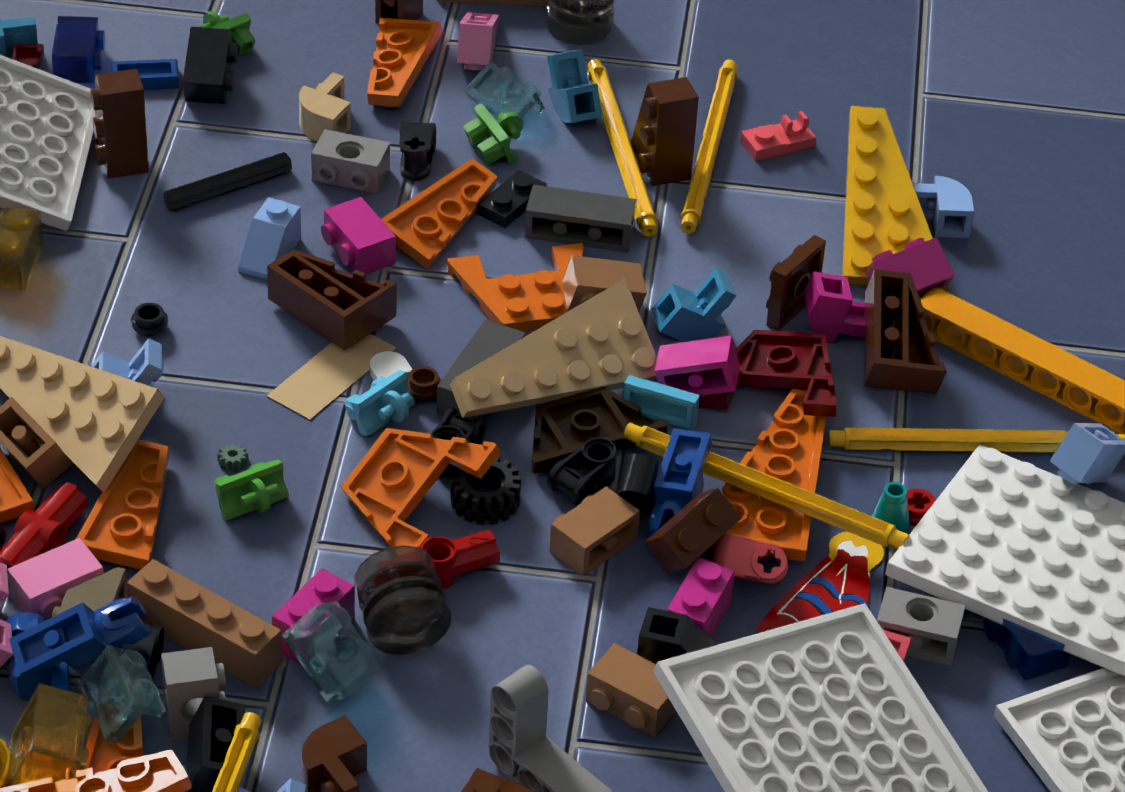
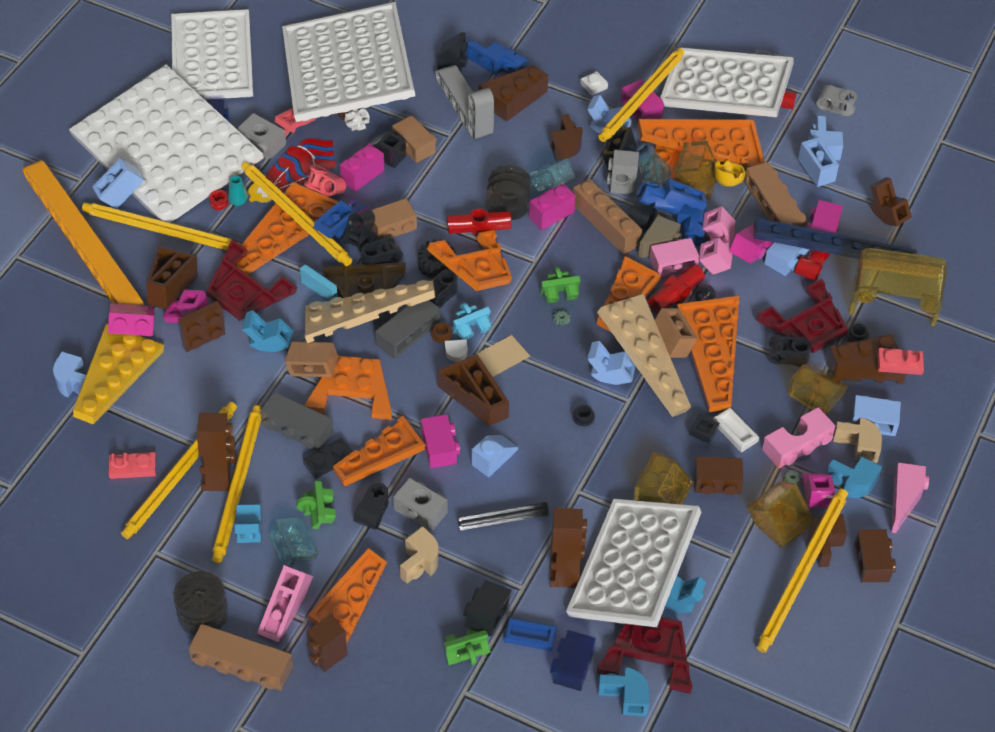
camera: 160 degrees left, 10 degrees up
(693, 530) = (349, 185): reddish brown brick -> none
(699, 366) = (289, 289): dark pink brick -> none

